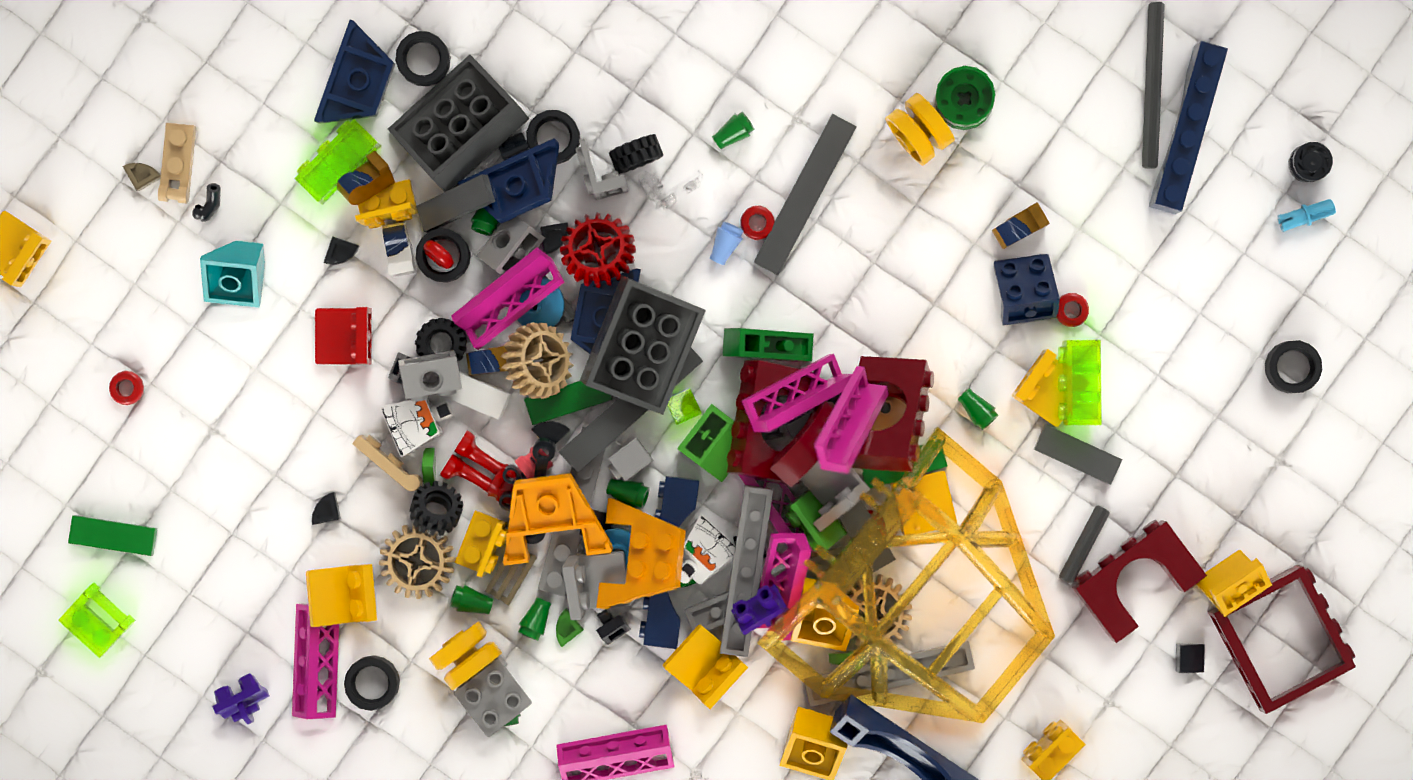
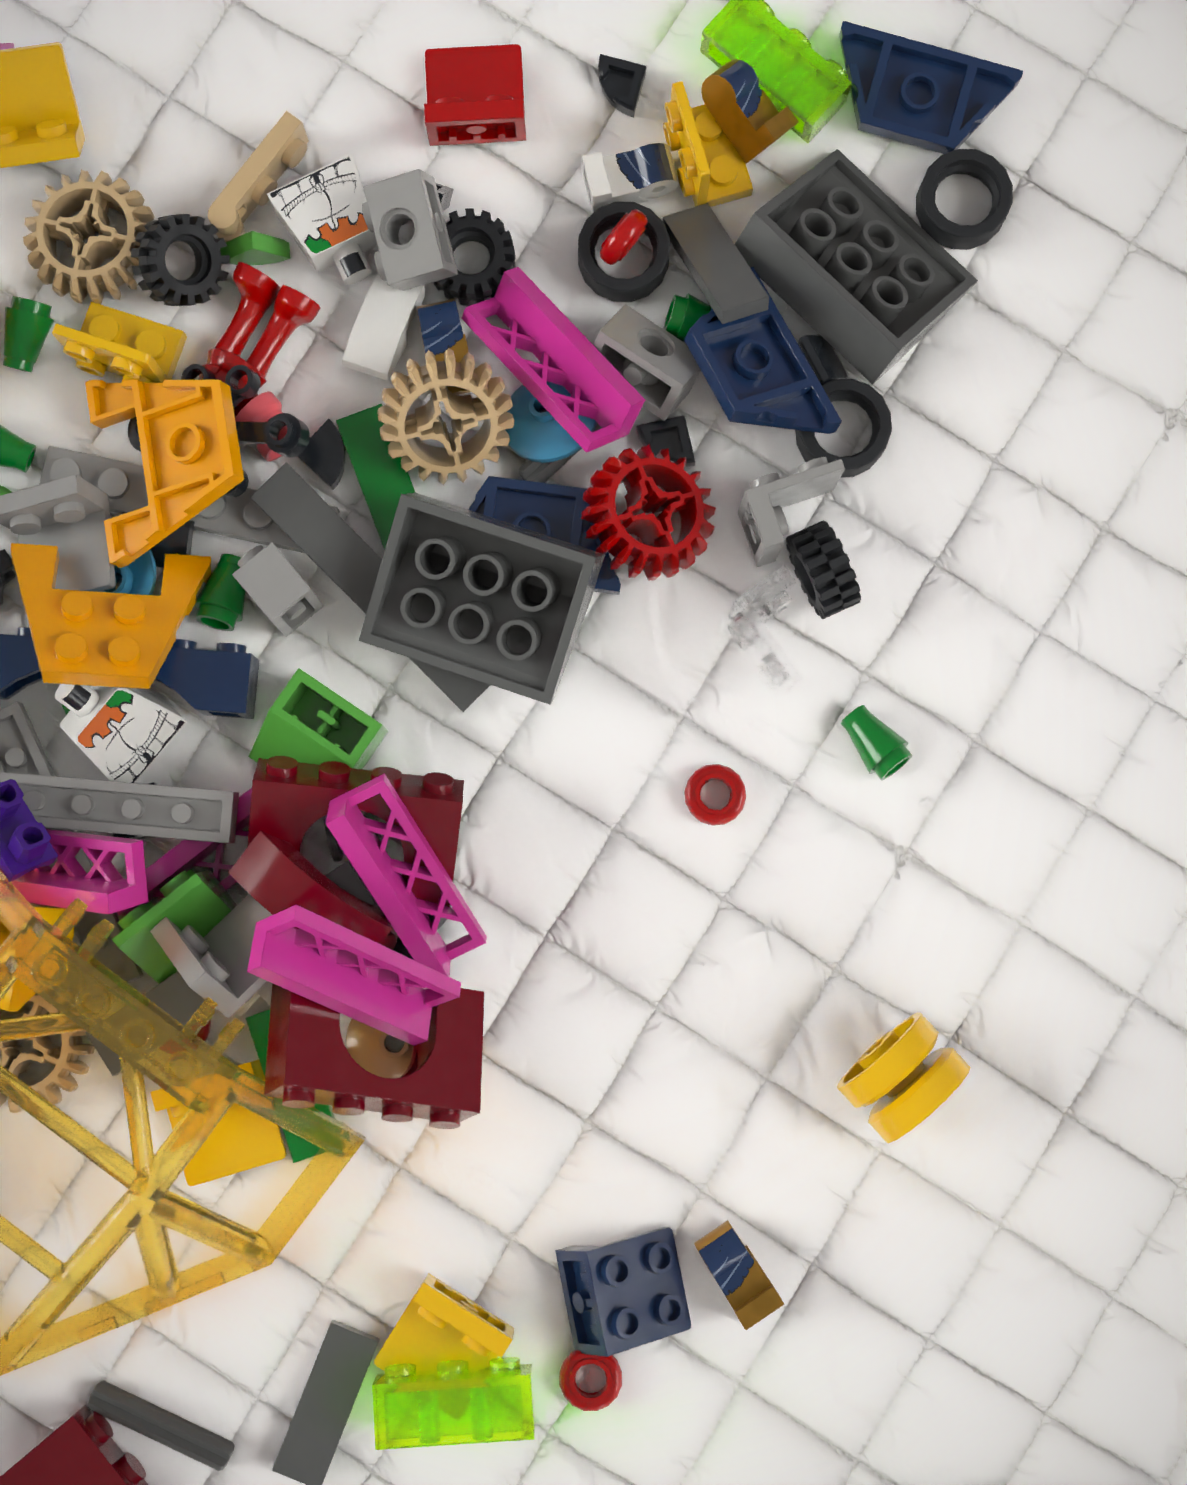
camera: 90 degrees right, 5 degrees down
(326, 510) = (176, 85): black tile -> none
(499, 594) = (40, 381): dark tan tile -> none
(683, 406) = (379, 681): clear neon green slope -> none
(725, 242) = (677, 740): light blue cone -> none
(767, 344) = (497, 824): green slope -> none
(805, 194) = (772, 877): dark grey tile -> none
(965, 81) = (996, 1157): green wheel -> none
(978, 409) = (399, 1213): green cone -> none

